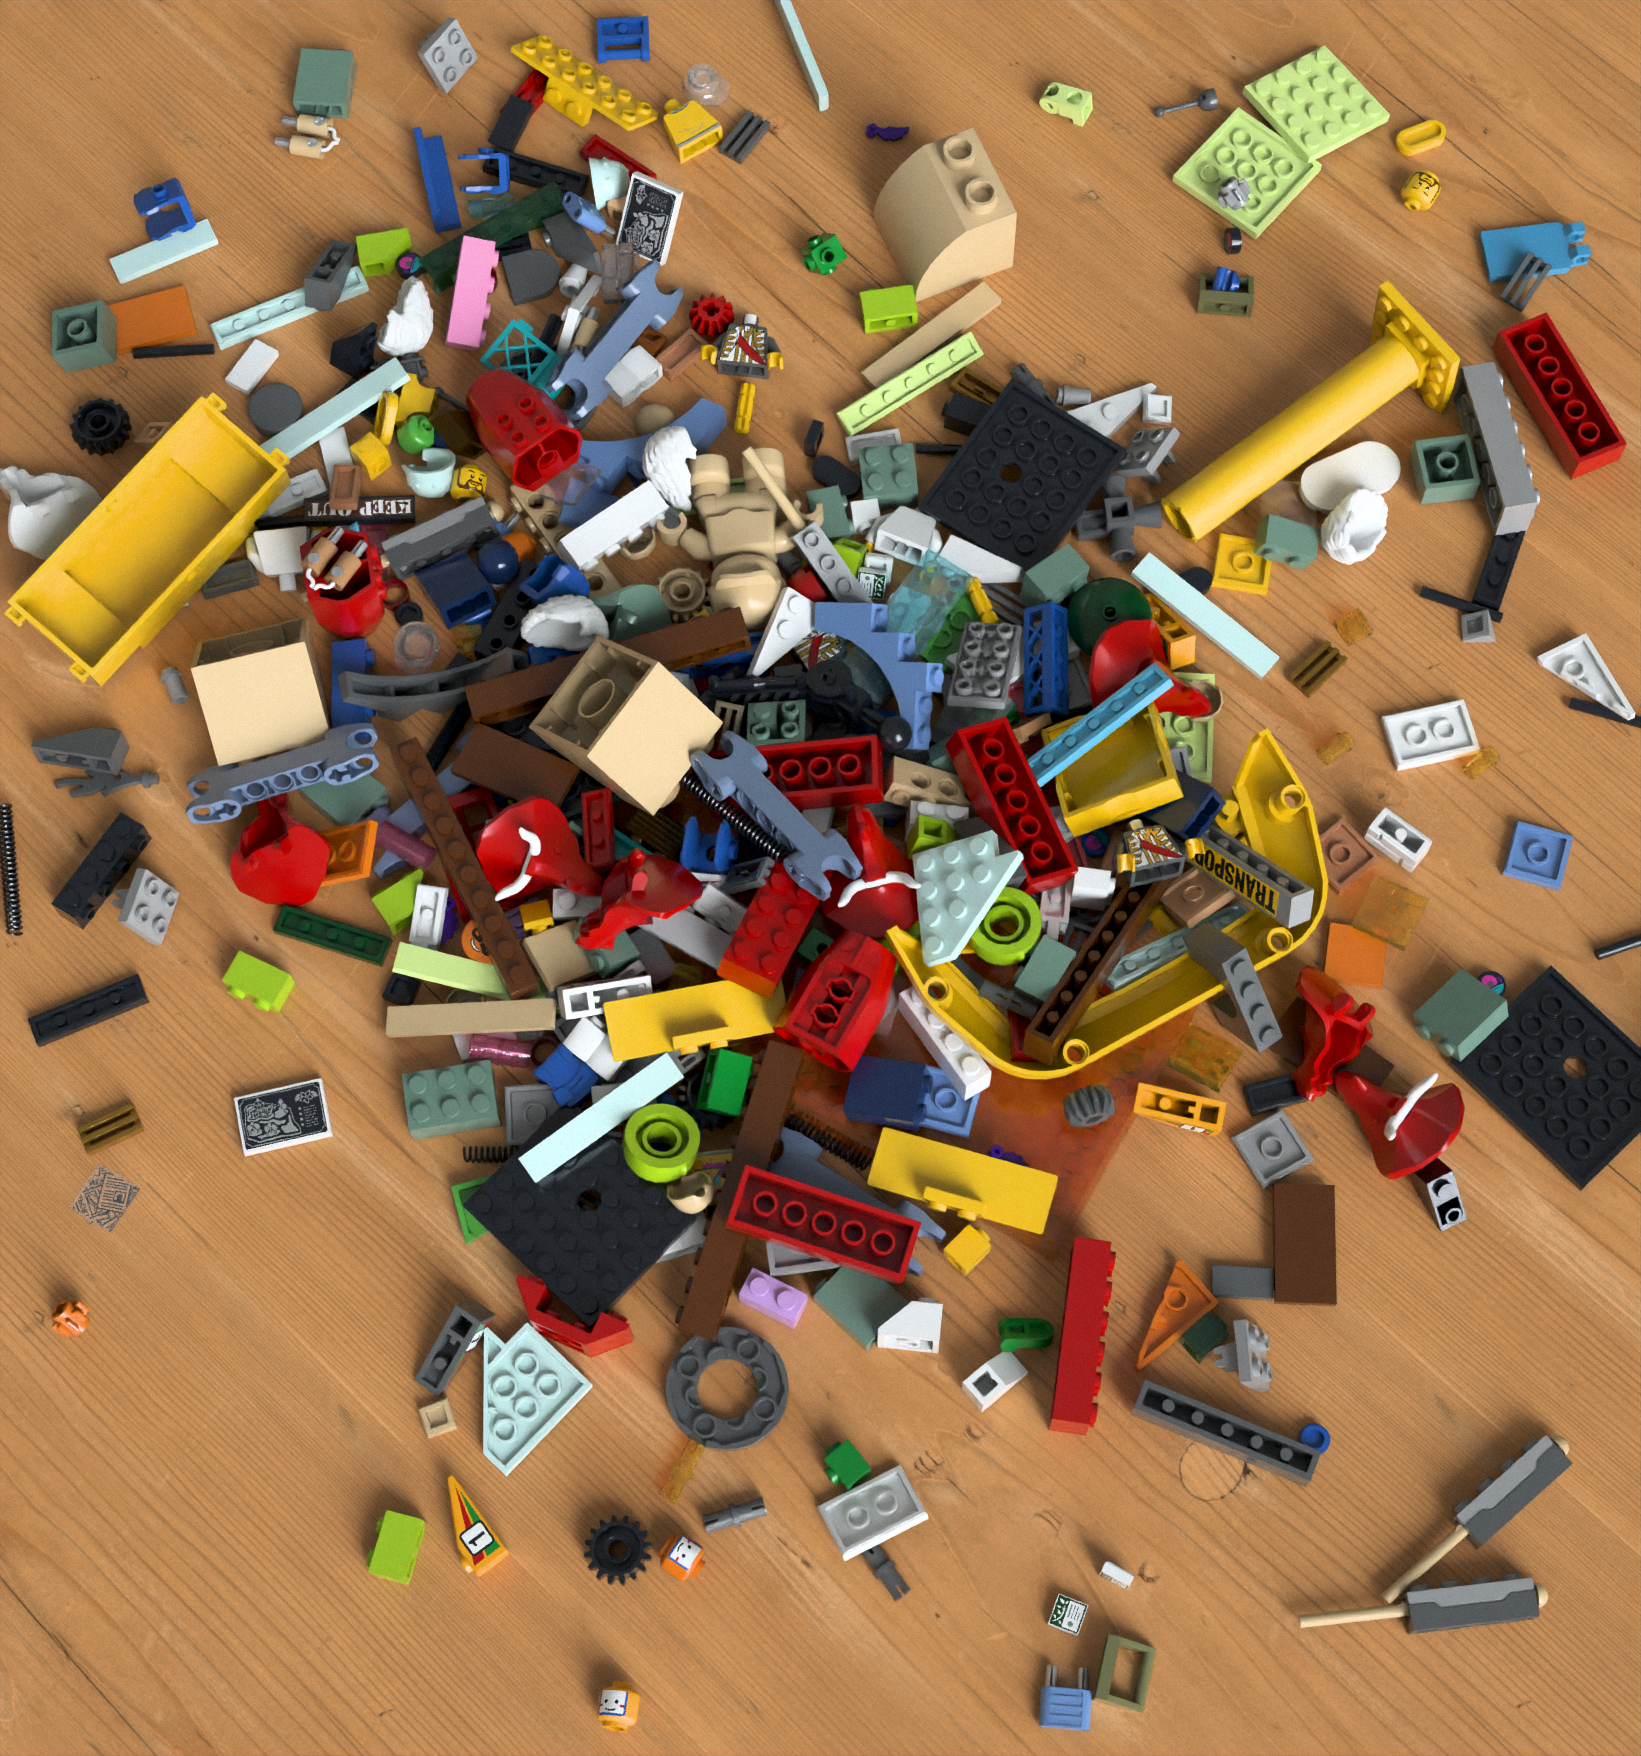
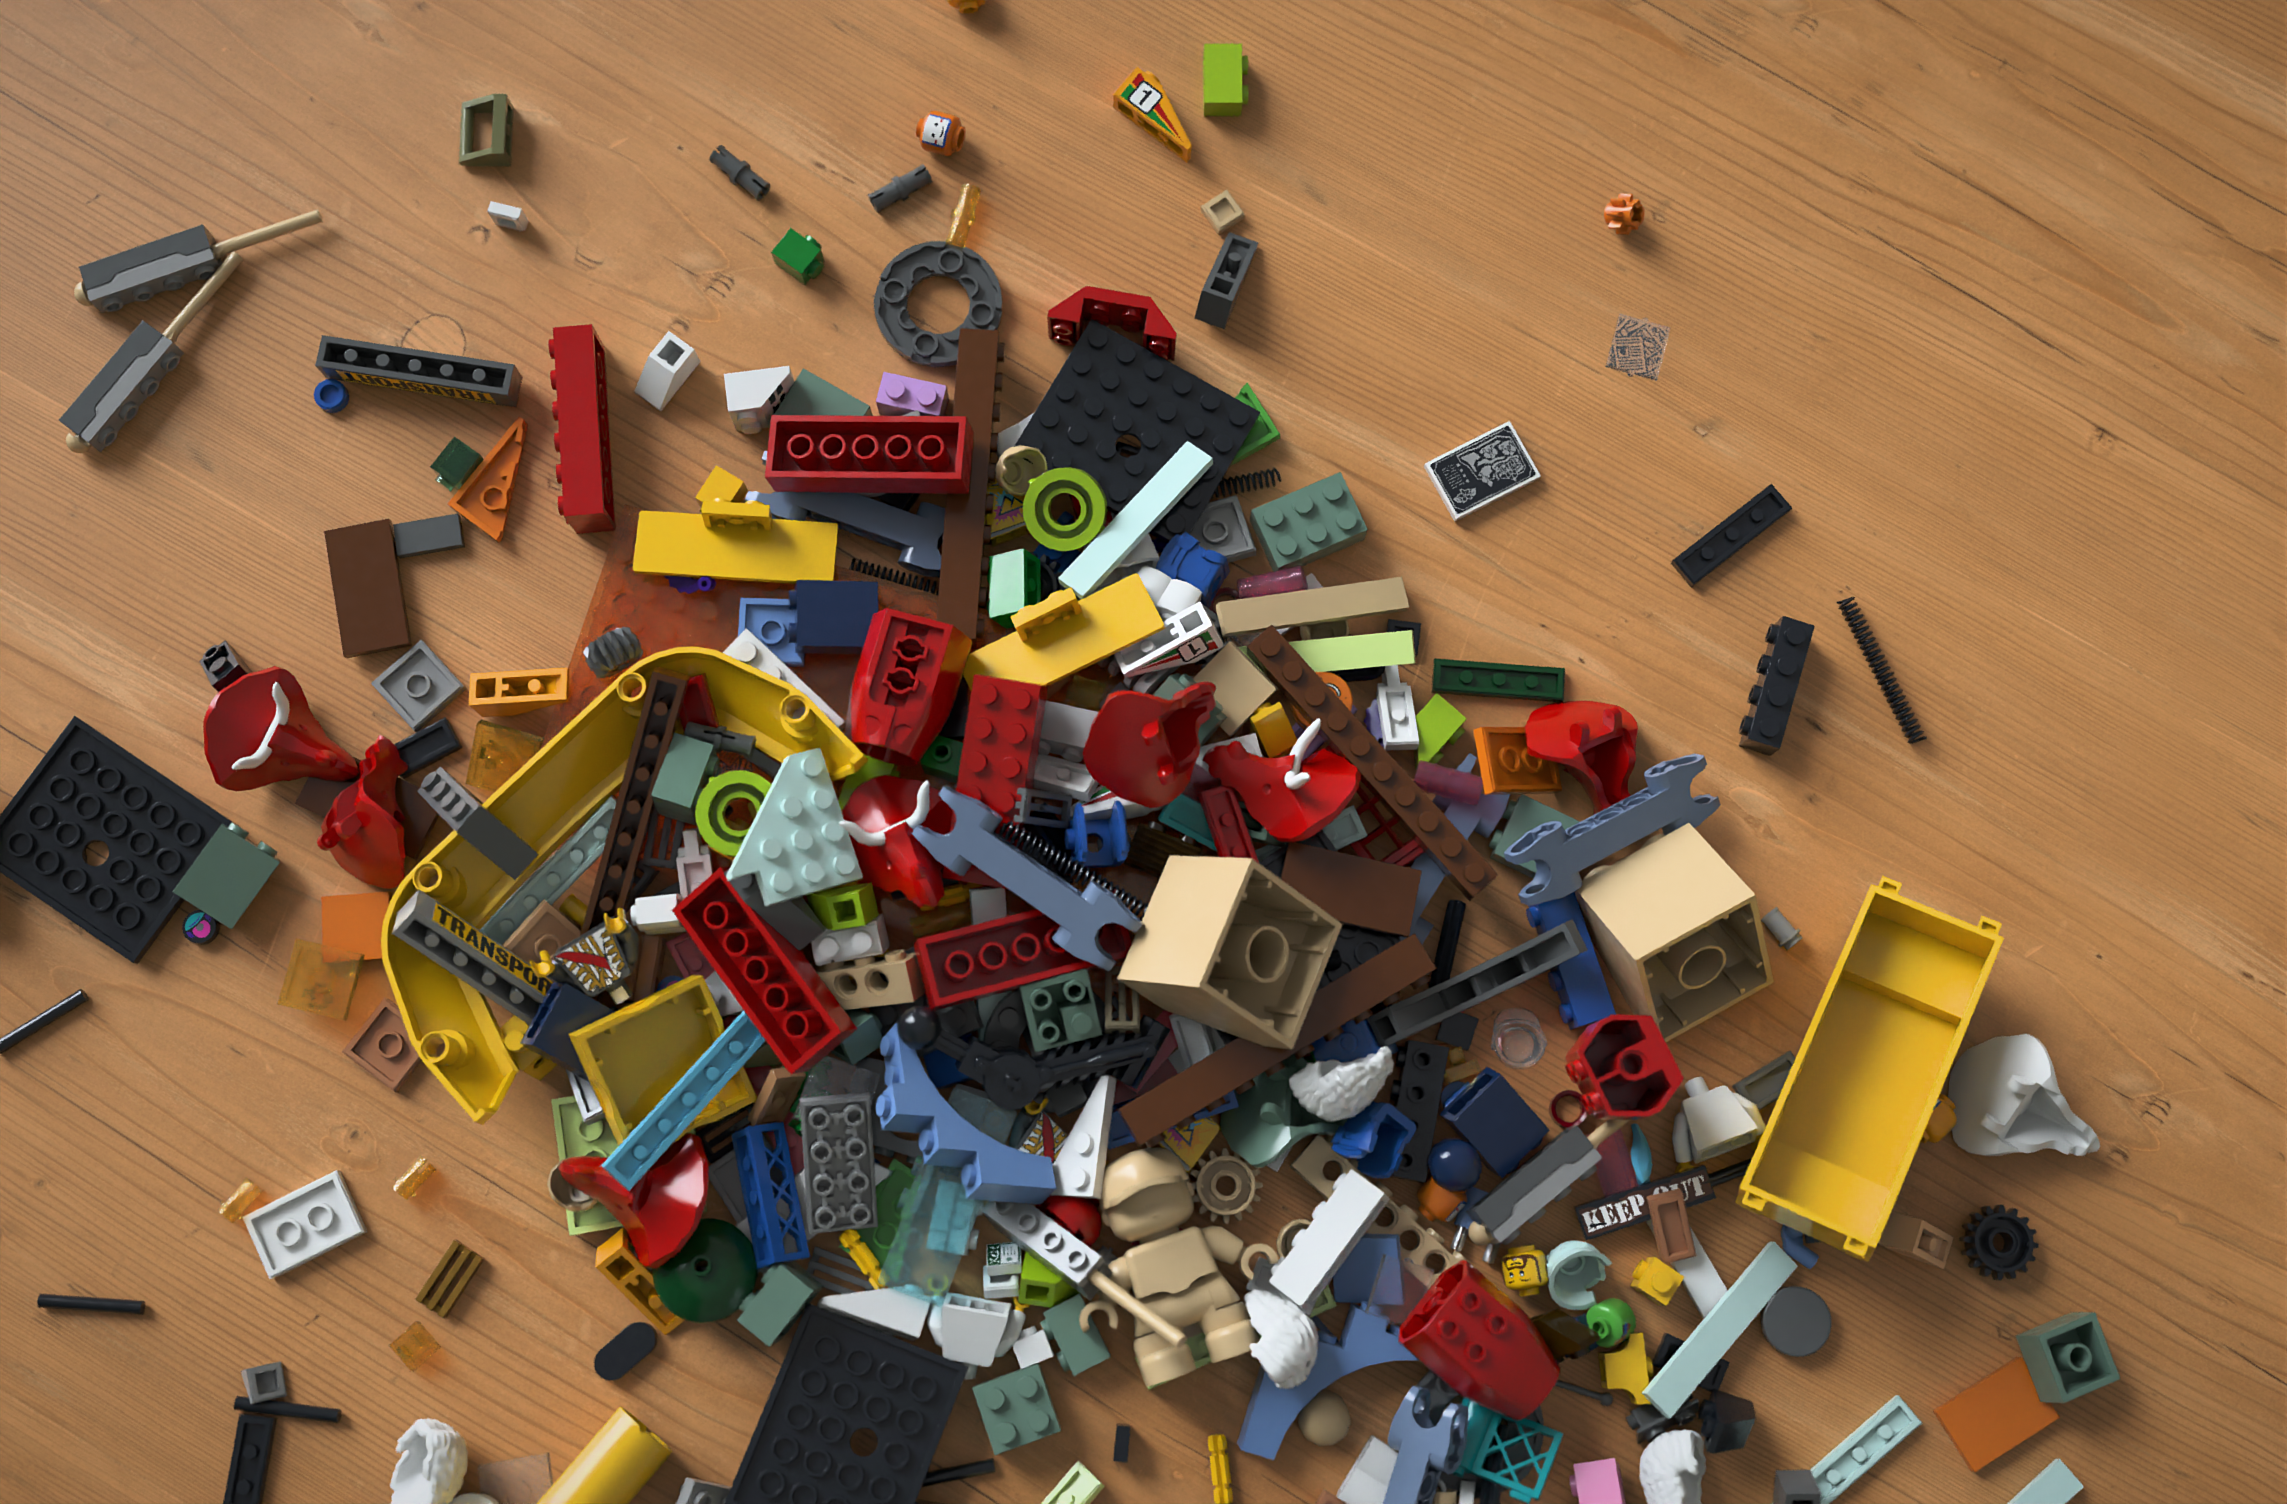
camera: 160 degrees right, 10 degrees up
(86, 749) = (1846, 824): dark grey slope -> none
(106, 1119) = (1678, 398): pearl gold tile -> none
(107, 782) = (1818, 797): dark grey piece -> none
(147, 906) = (1710, 651): light grey plate -> none
(173, 351) = (1952, 1375): black bar -> none
(252, 367) = (1847, 1376): white tile -> none
(258, 982) = (1559, 603): lime brick -> none
(302, 486) = (1722, 1217): white hinge -> none
(342, 569) = (1651, 1069): medium nougat piece -> none
(386, 417) = (1655, 1334): yellow tile -> none
(407, 613) = (1541, 1085): black tile -> none
(524, 1394) = (1142, 247): light aqua wing -> none
(622, 1567) = (1002, 110): black gear -> none
(831, 472) = (1082, 1398): black tile -> none
(872, 1512) = (761, 217): white tile -> none
(880, 438) = (1046, 1455): white tile -> none
(1024, 1333) = (632, 429): green plate -> none
(1065, 1706) = (537, 91): medium blue piece -> none
(1067, 1615) = (551, 174): tile -> none
(1117, 520) = (720, 1418): dark grey brick -> none
(1205, 616) = (595, 1312): light aqua tile -> none
(1238, 566) = (561, 1401): yellow tile -> none
(1247, 1356) = (408, 449): light grey plate -> none
(1286, 541) = (508, 1435): sand green brick -> none
(1398, 839) = (322, 1070): white brick -> none
(1537, 855) = (163, 1100): medium blue tile -> none
(1584, 669) = (126, 1352): white wing -> none

